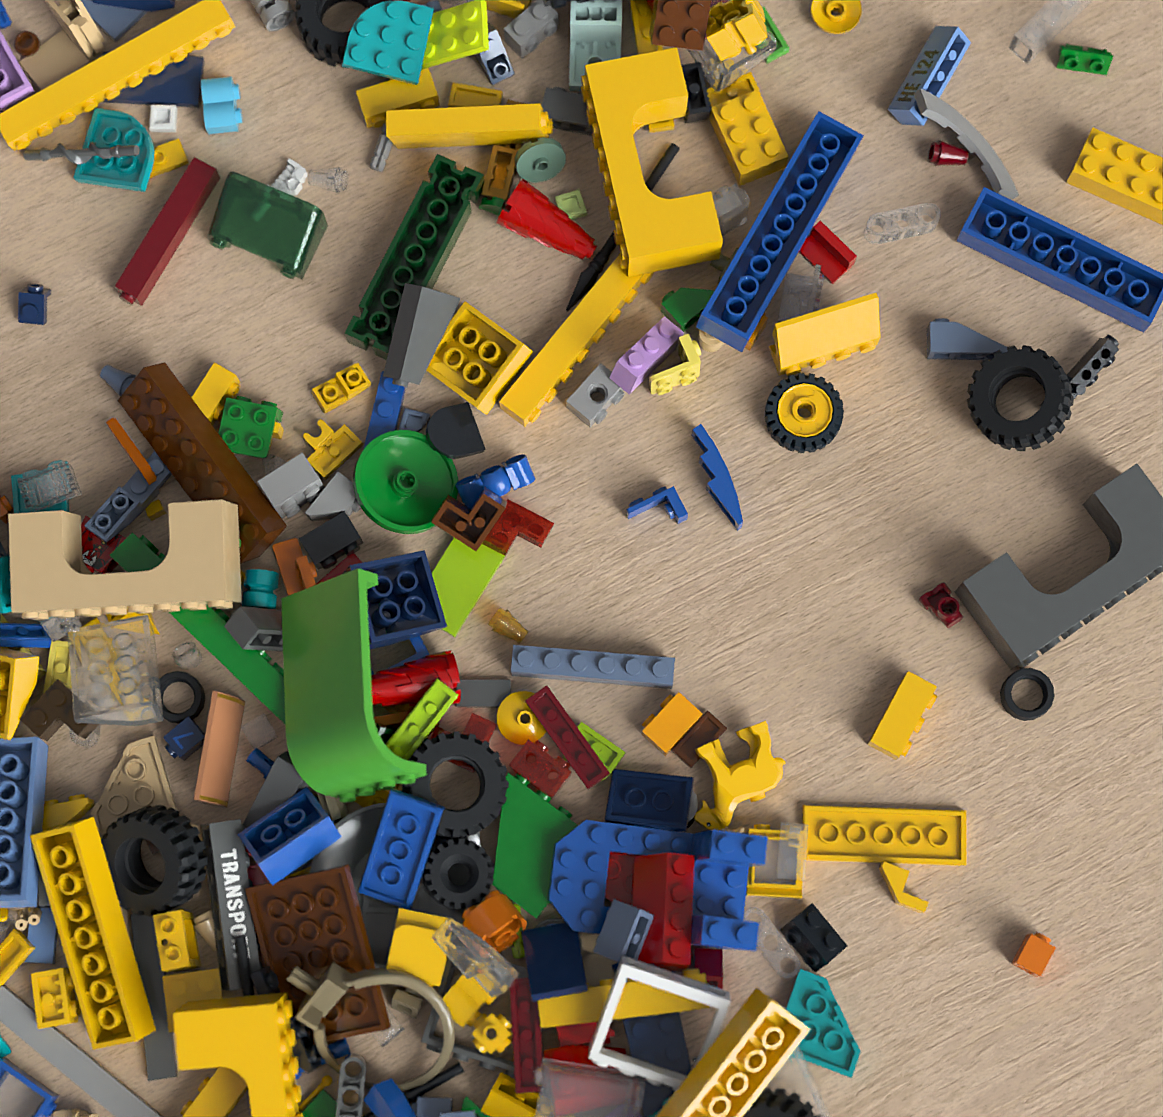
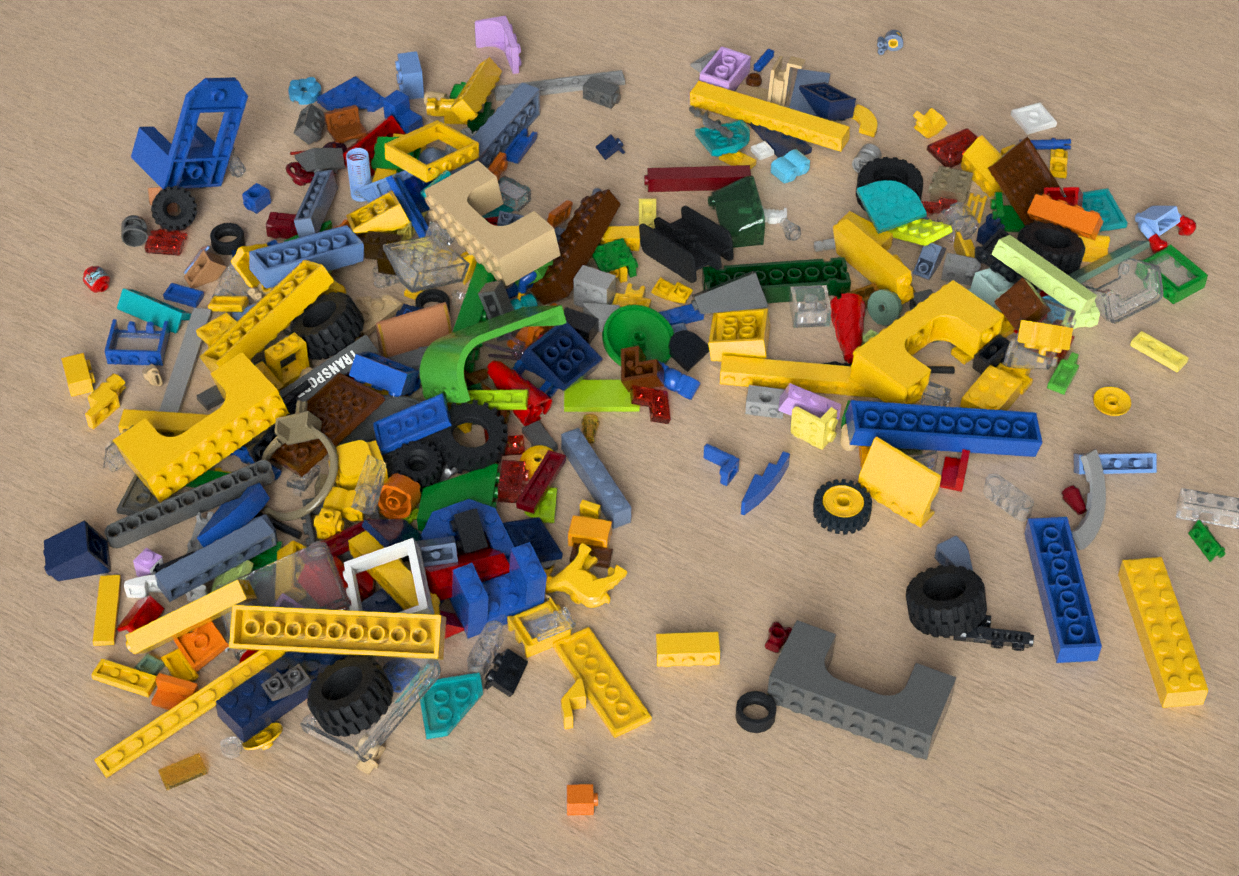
camera: 55 degrees right, 30 degrees down
(196, 339) = (647, 212): none -> light yellow plate
(322, 341) = (687, 243): none -> black piece
(481, 245) = (810, 306): none -> clear brick
(612, 875) = (468, 532): none -> black brick
(638, 703) = (590, 509): none -> yellow tile

